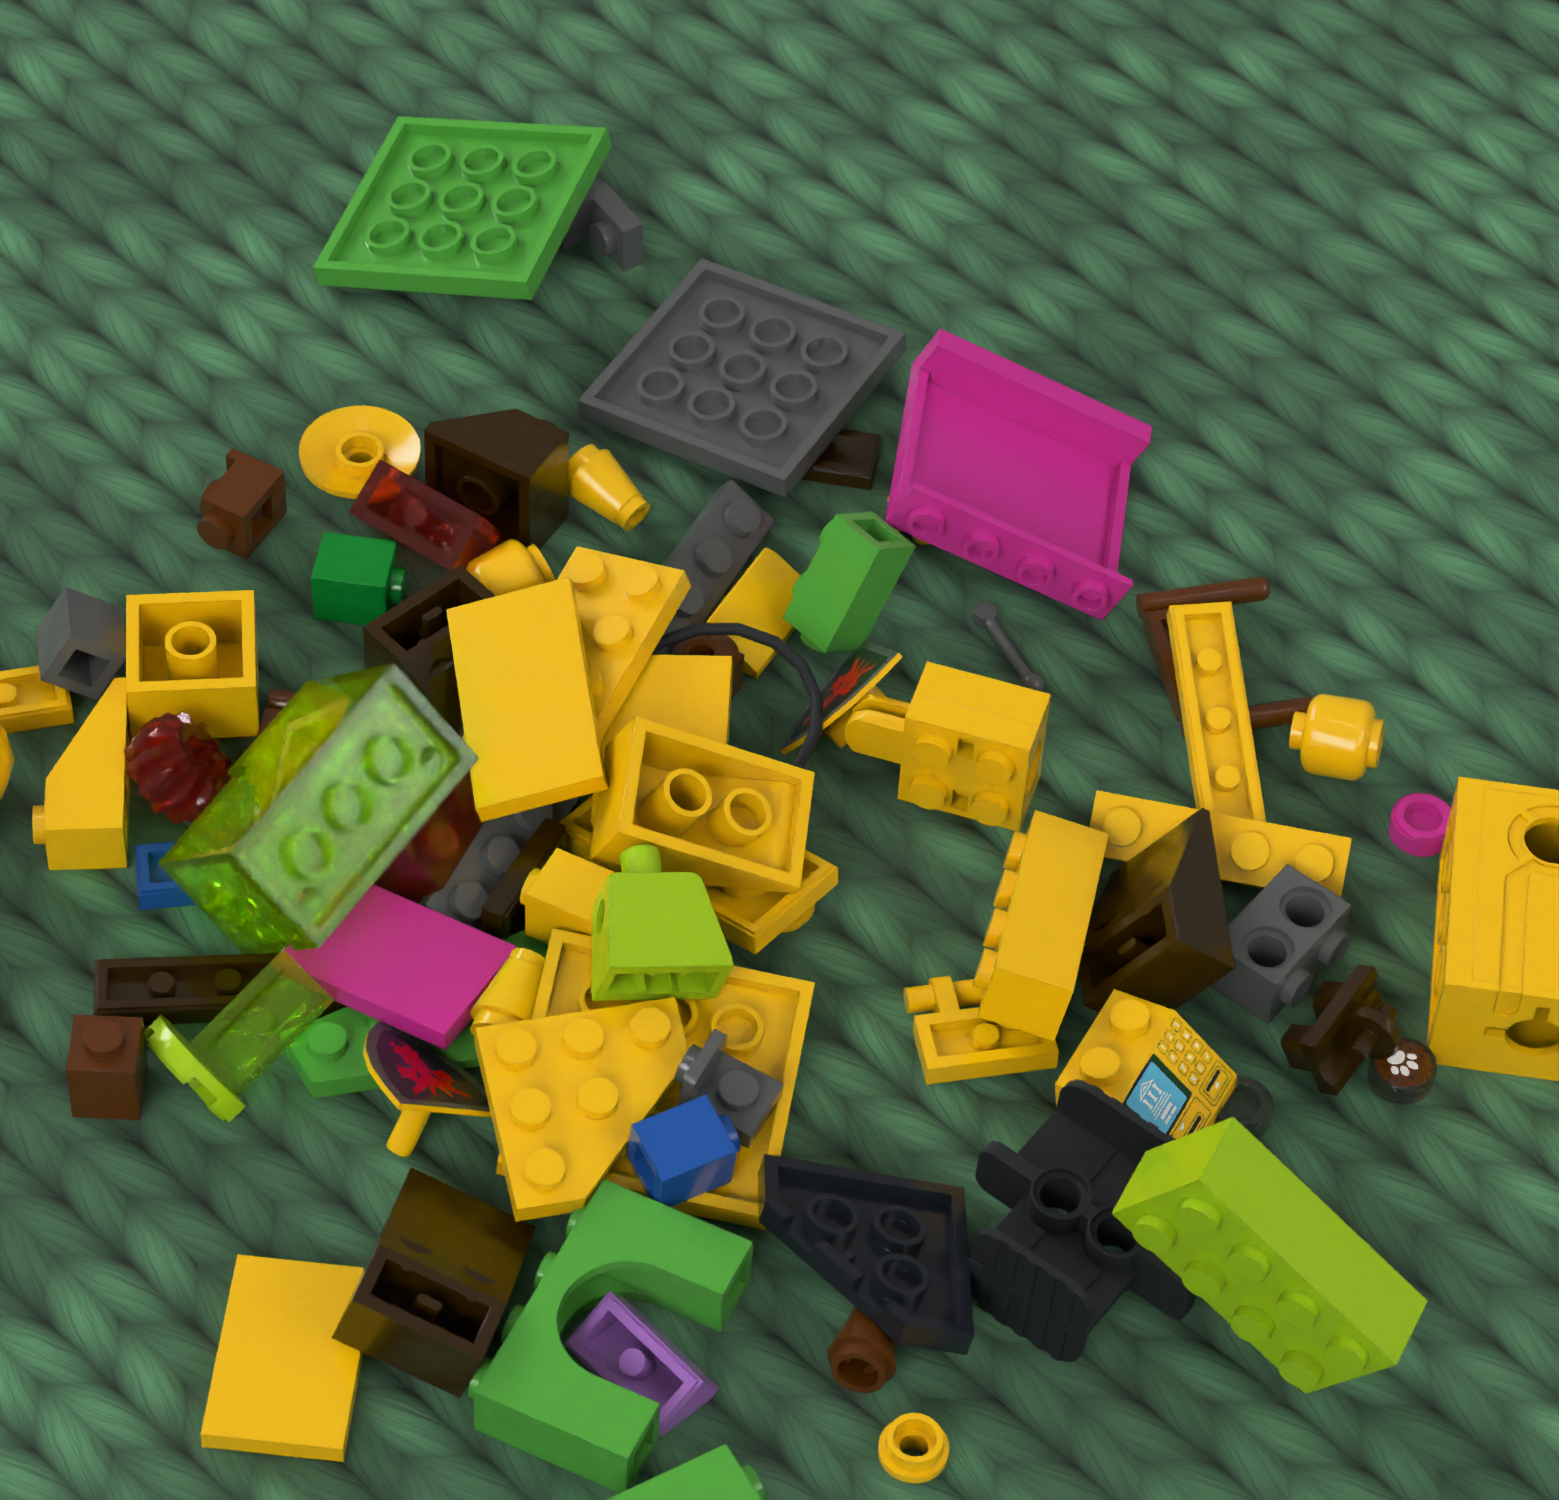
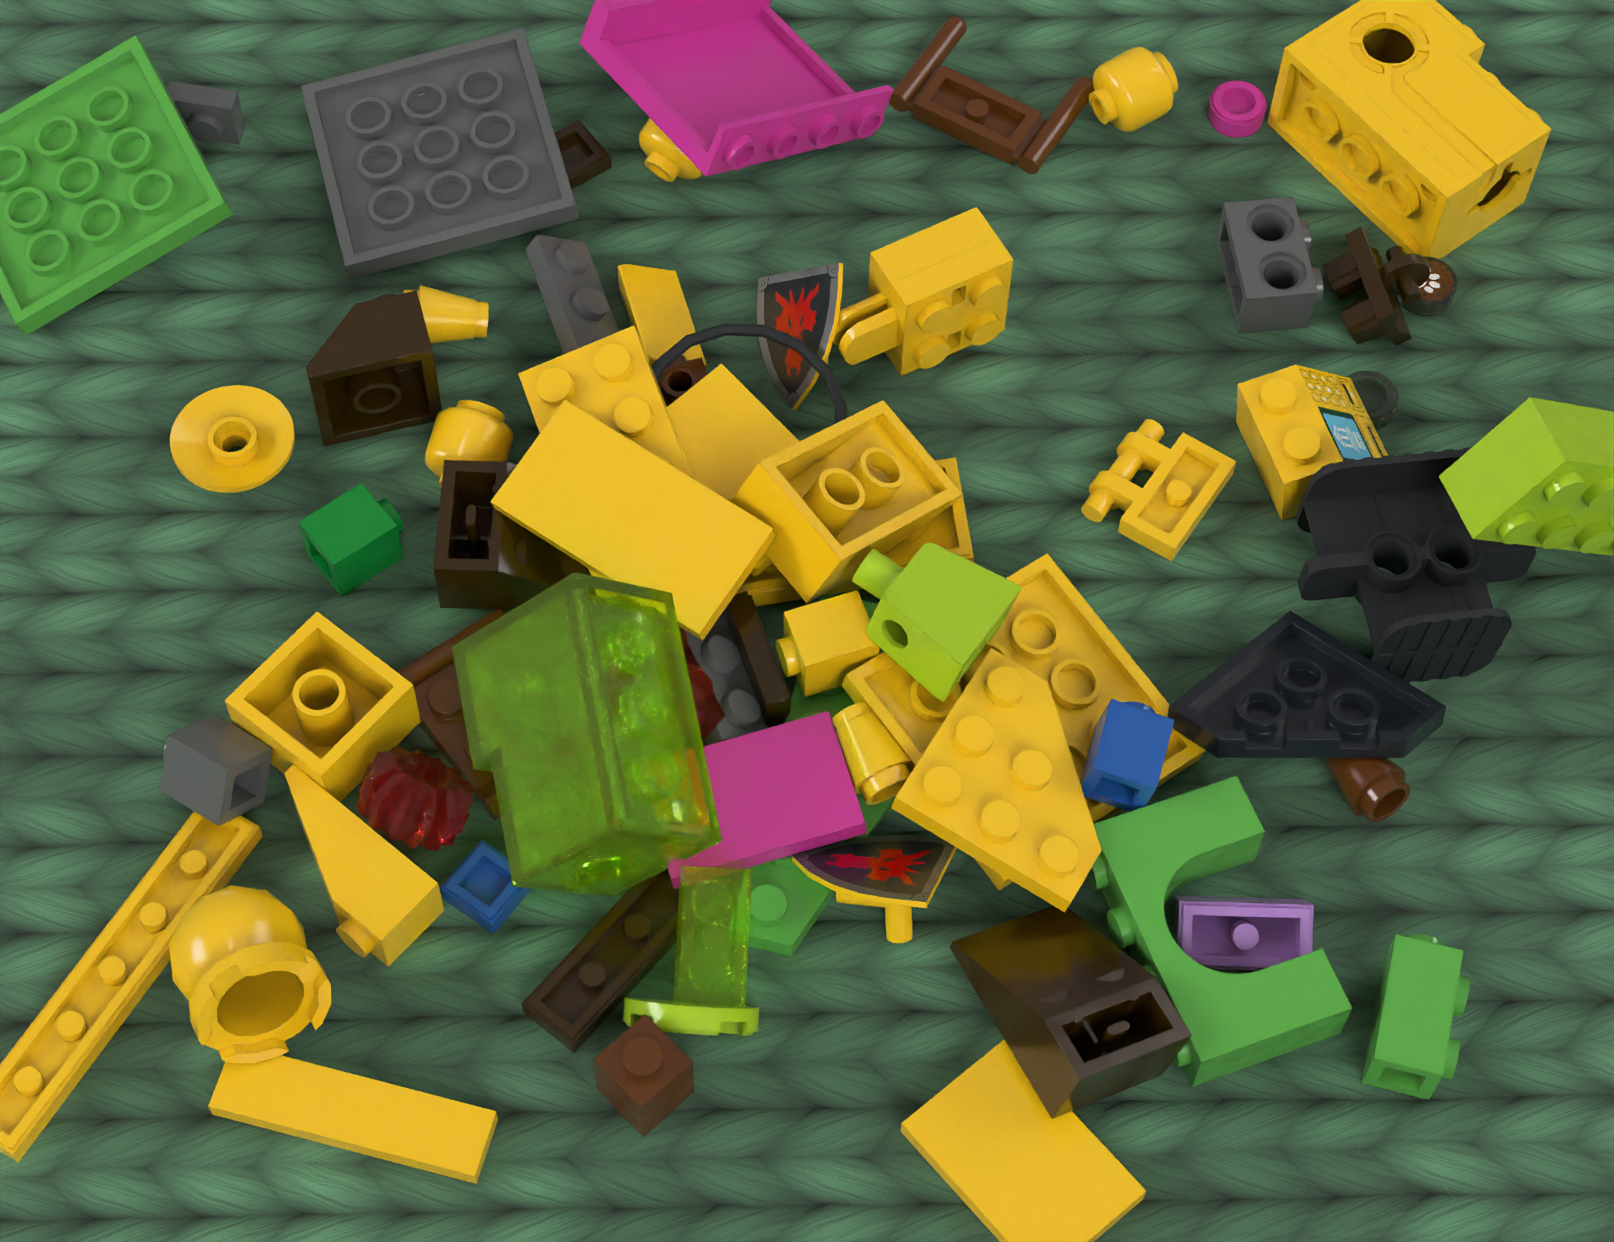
camera: 45 degrees left, 10 degrees up
(242, 505) = (191, 554): reddish brown brick -> none
(422, 519) = (359, 450): clear red brick -> none
(730, 1085) = (1088, 681): dark grey bracket -> none
(847, 582) = (716, 243): bright green brick -> none
(917, 1432) = (1482, 807): yellow plate -> none
(985, 616) = (800, 194): dark grey hinge -> none
(1043, 927) = (1140, 379): yellow brick -> none
(1160, 923) = (1196, 310): dark brown slope -> none
(1215, 709) = (1055, 142): yellow tile -> none
(1246, 848) = (1145, 231): yellow plate -> none

